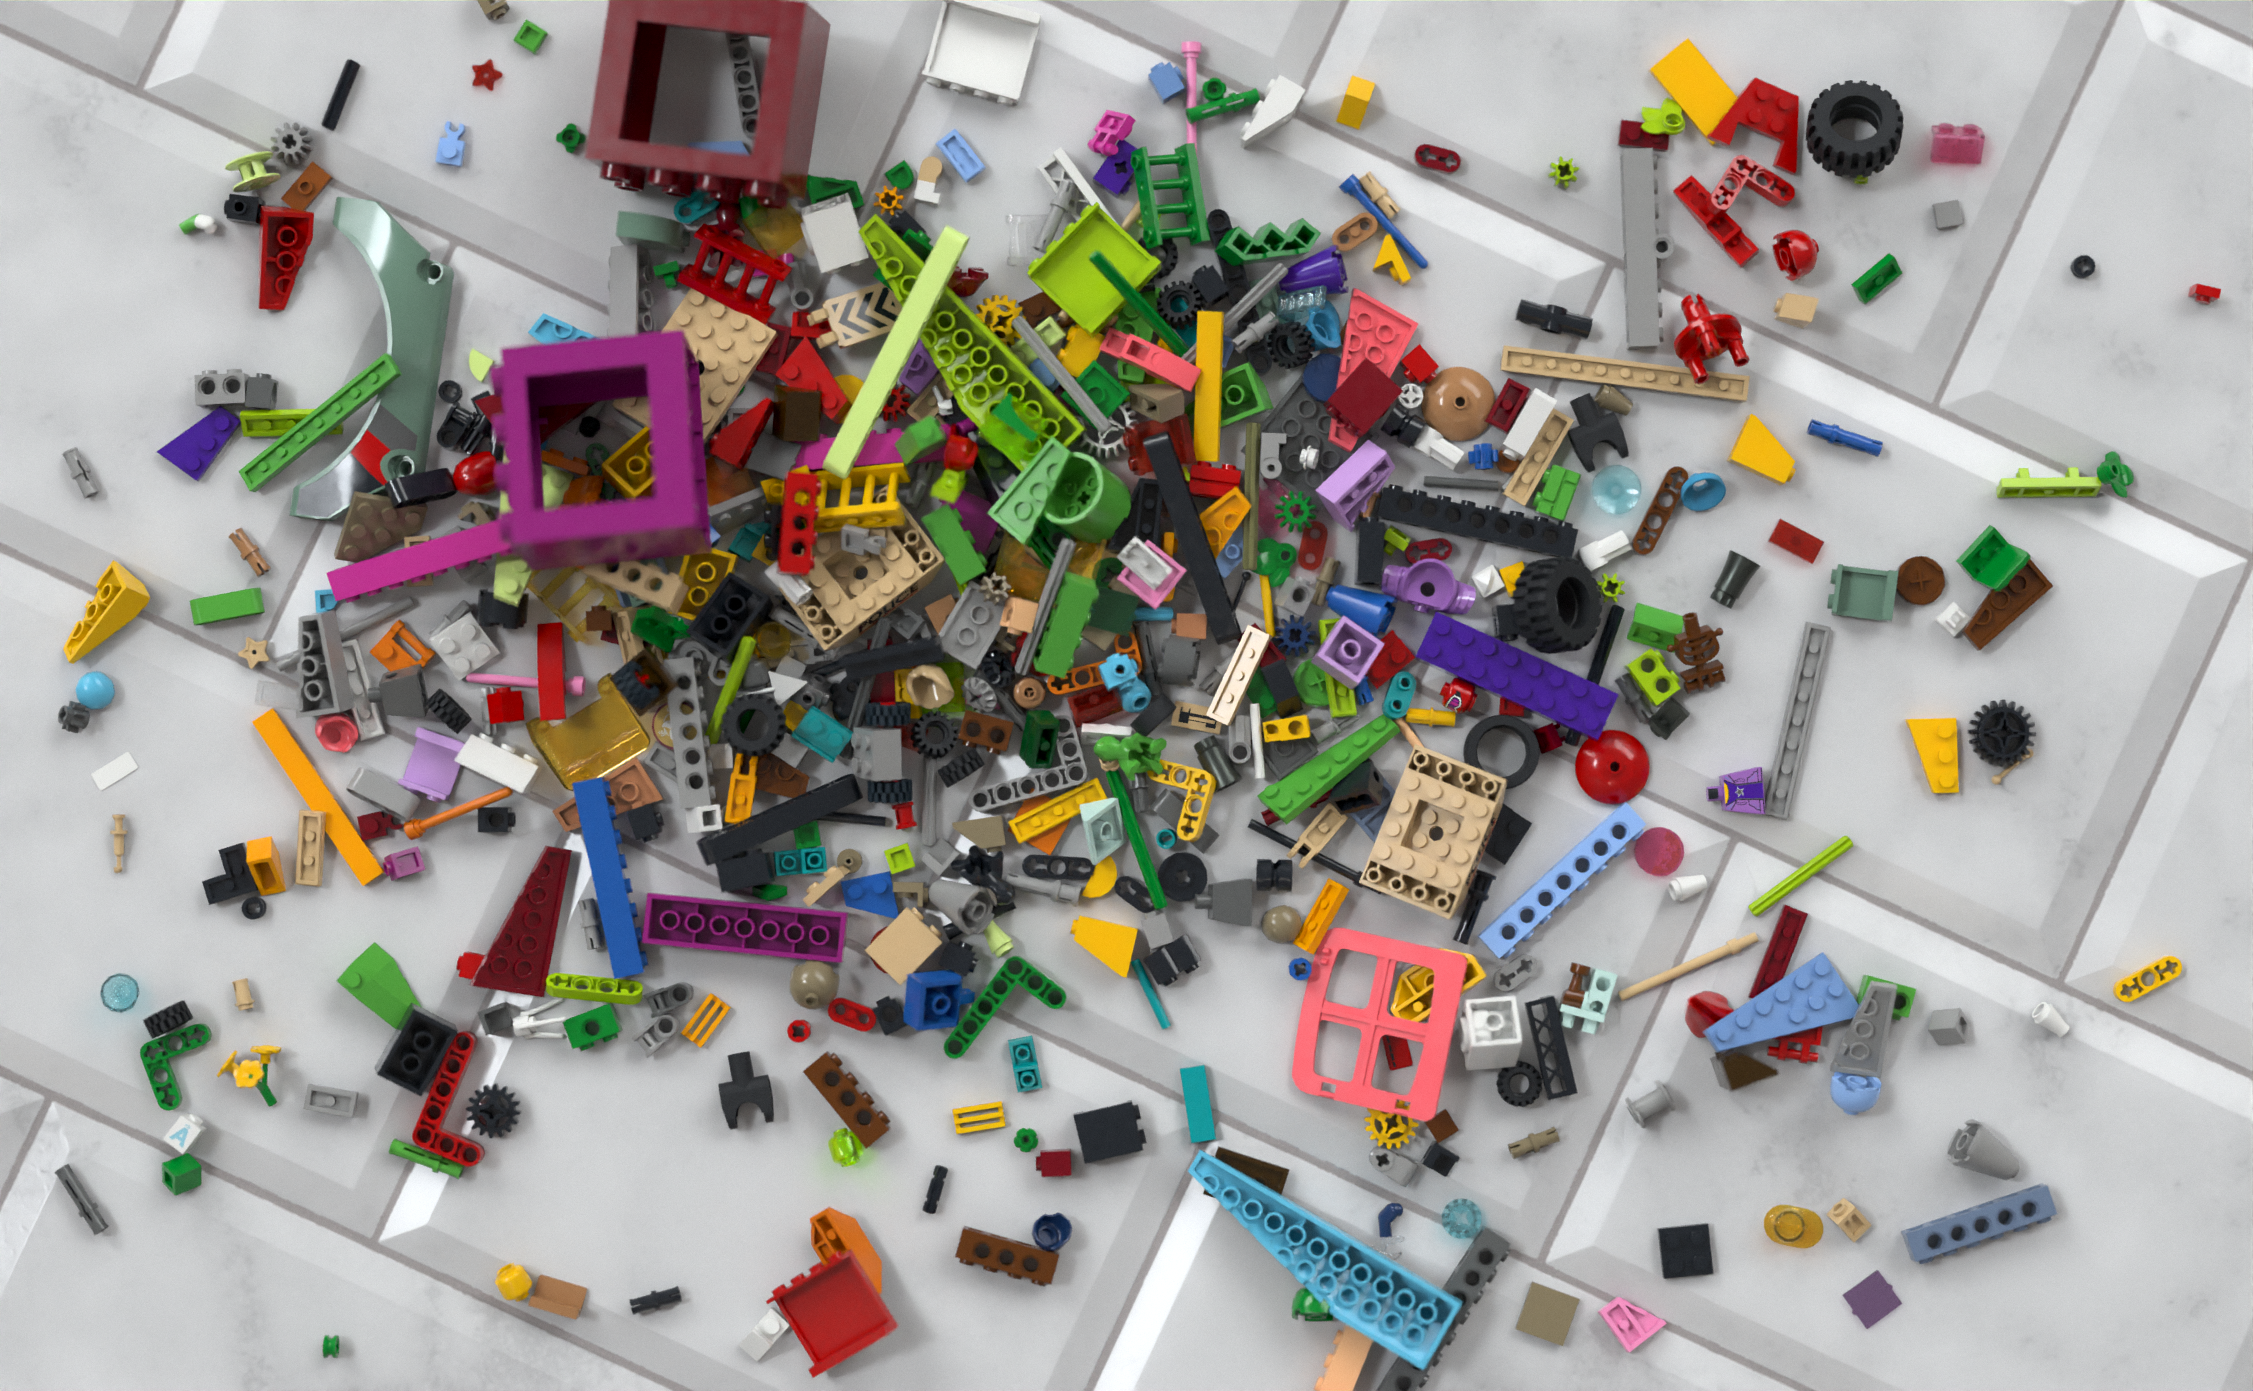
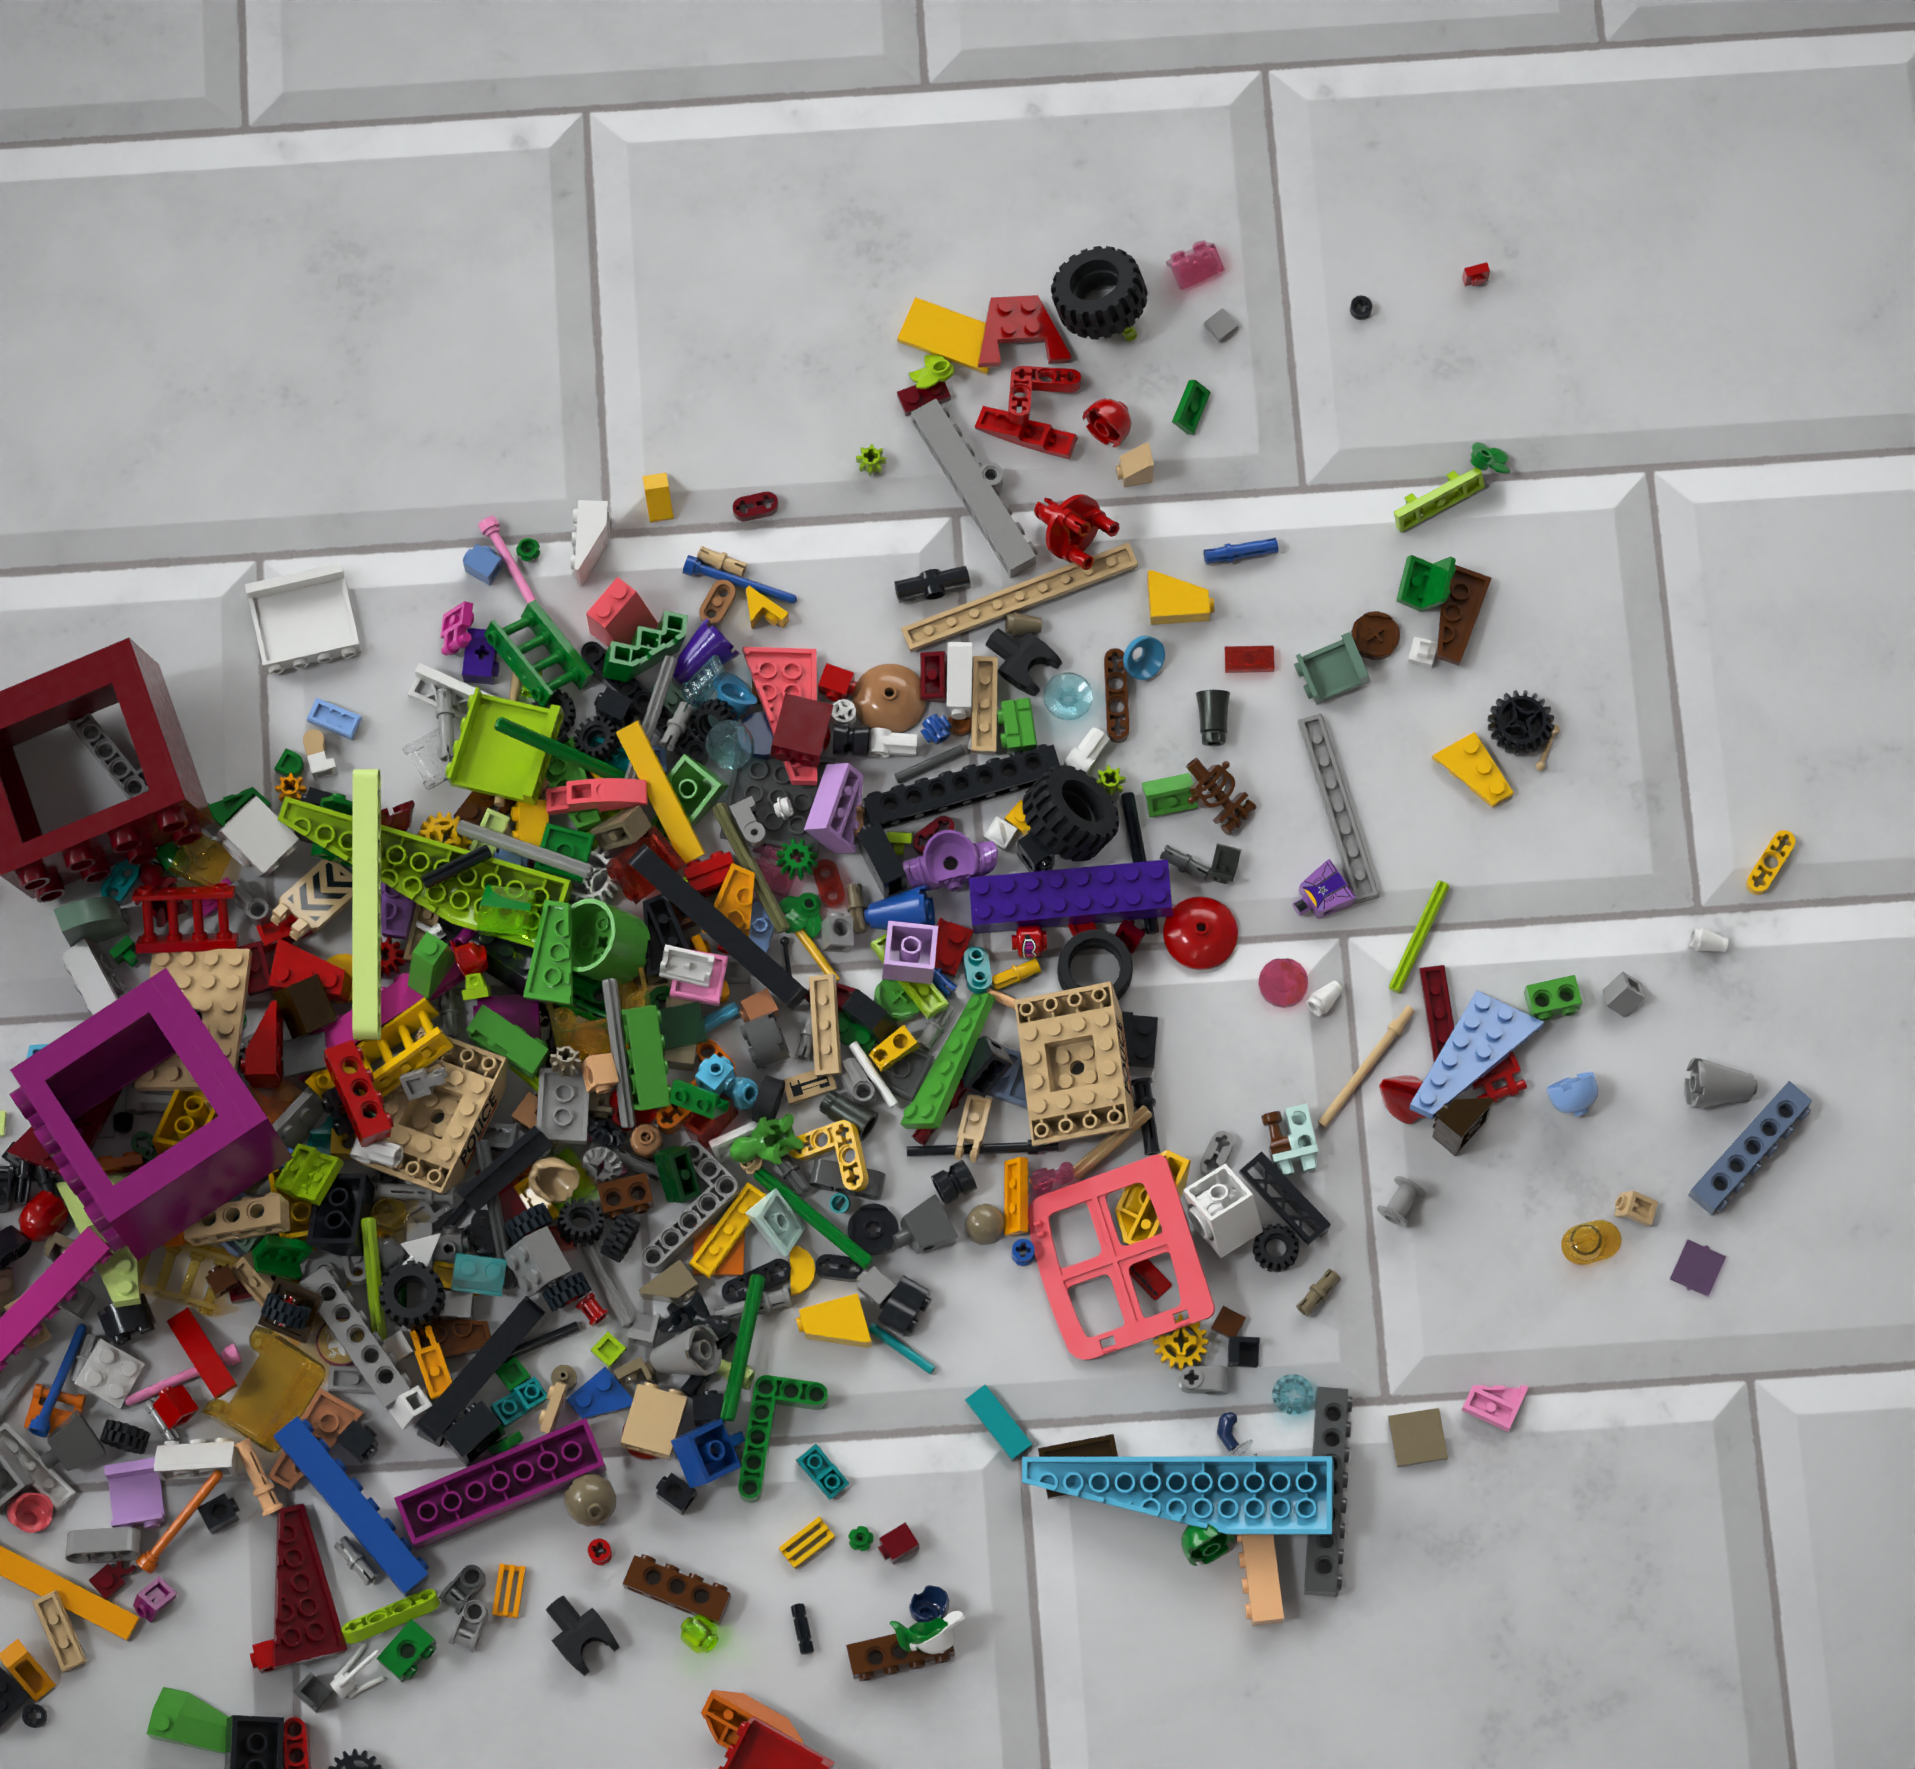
camera: 25 degrees left, 15 degrees down
(383, 660) = (40, 1425): none -> blue piece
(543, 820) = (262, 1487): none -> light nougat pin
(720, 570) = (308, 1174): none -> lime slope
(852, 1014) = (640, 1510): red plate -> none
(991, 362) = (456, 866): none -> black axle
(1013, 923) = (742, 1348): none -> green axle
(1037, 1263) = (931, 1636): none -> hair
(1090, 688) = (697, 1099): none -> green bracket
(1109, 1131) = (931, 1488): black panel -> none
(1148, 658) = (743, 1065): dark grey pin -> none
(1195, 114) = (523, 575): green pin -> none
(1260, 202) = (618, 614): none -> coral slope
(1286, 634) = (866, 967): dark blue gear -> none
(1293, 374) = (730, 744): none -> clear light blue tile
(1352, 918) = (1047, 1180): none -> clear pink plate
(1423, 915) = (1110, 1143): none -> tan axle
(1492, 934) = (1234, 968): light blue brick -> none
(1648, 681) = (1187, 841): lime brick -> none
(1685, 1250) = (1508, 1315): black plate -> none
(1866, 1038) = (1556, 1039): light grey wing -> none

